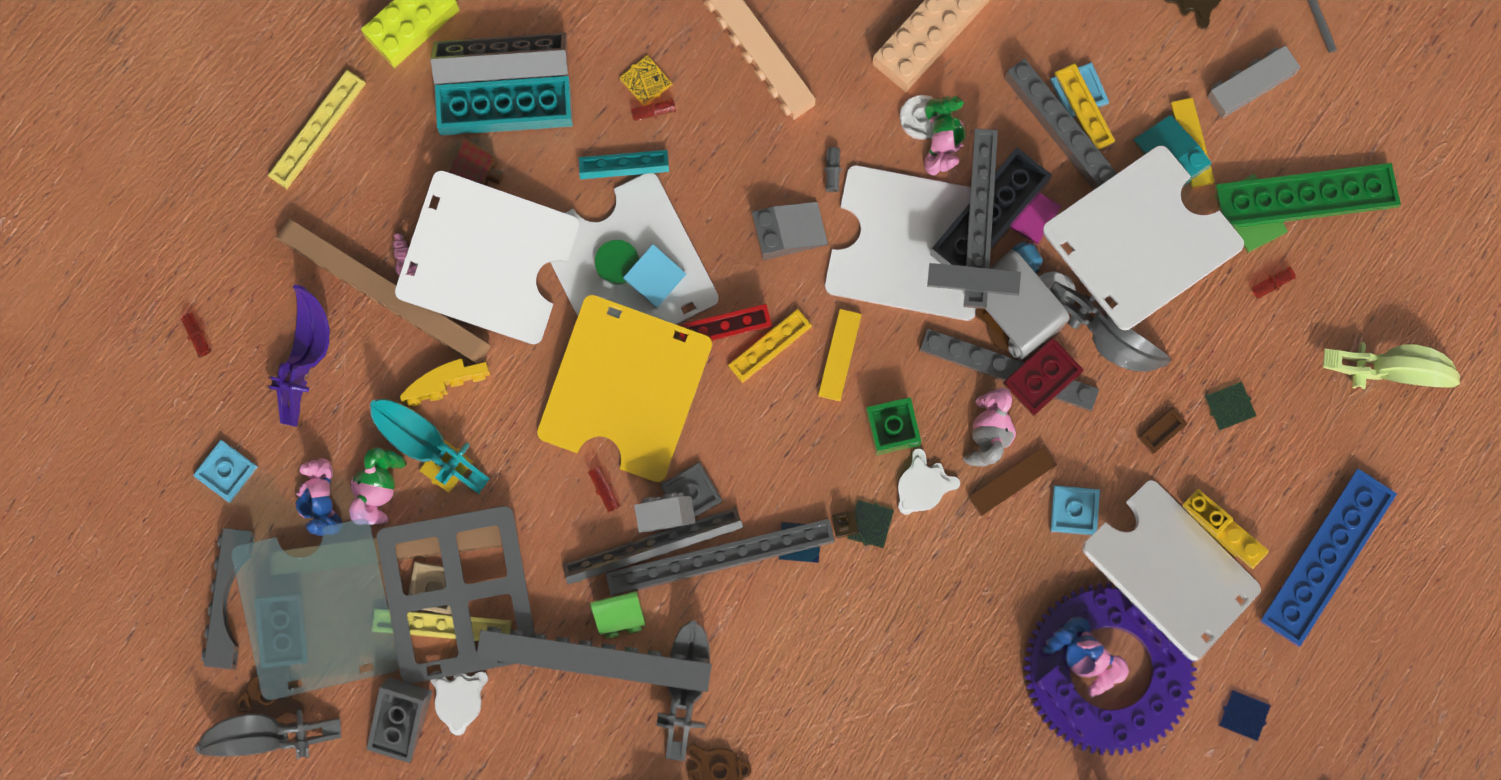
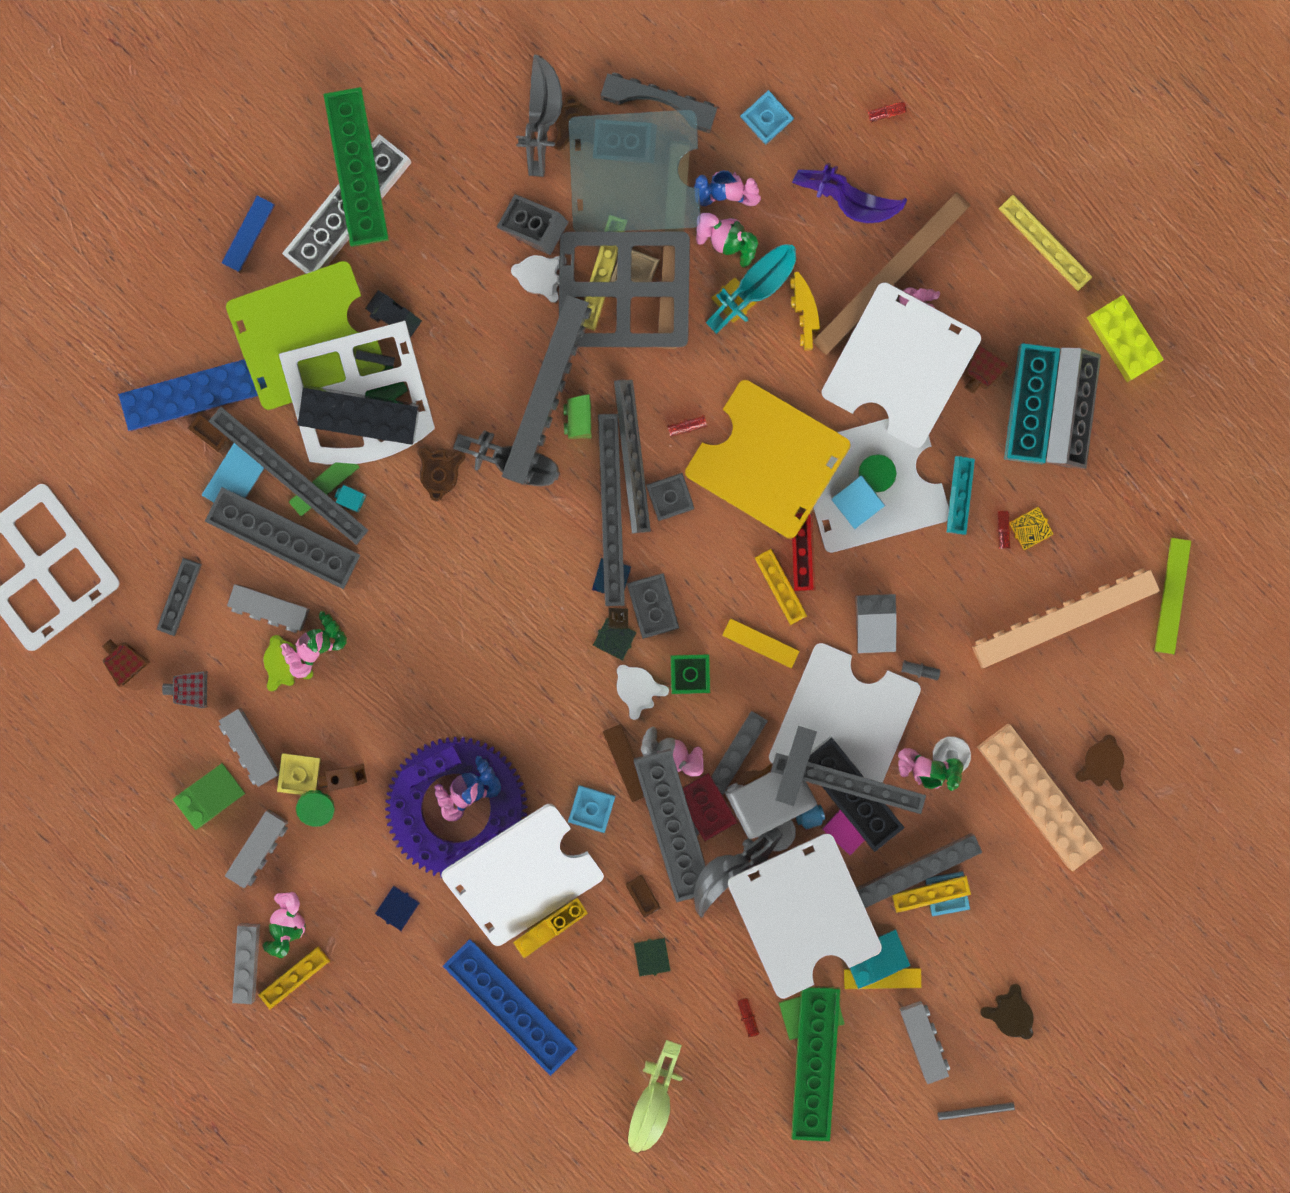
camera: 95 degrees right, 10 degrees up
(664, 513) = (654, 471): light grey brick -> none
(822, 487) = (653, 605): none -> dark grey tile
(1069, 411) = (671, 821): none -> dark grey plate

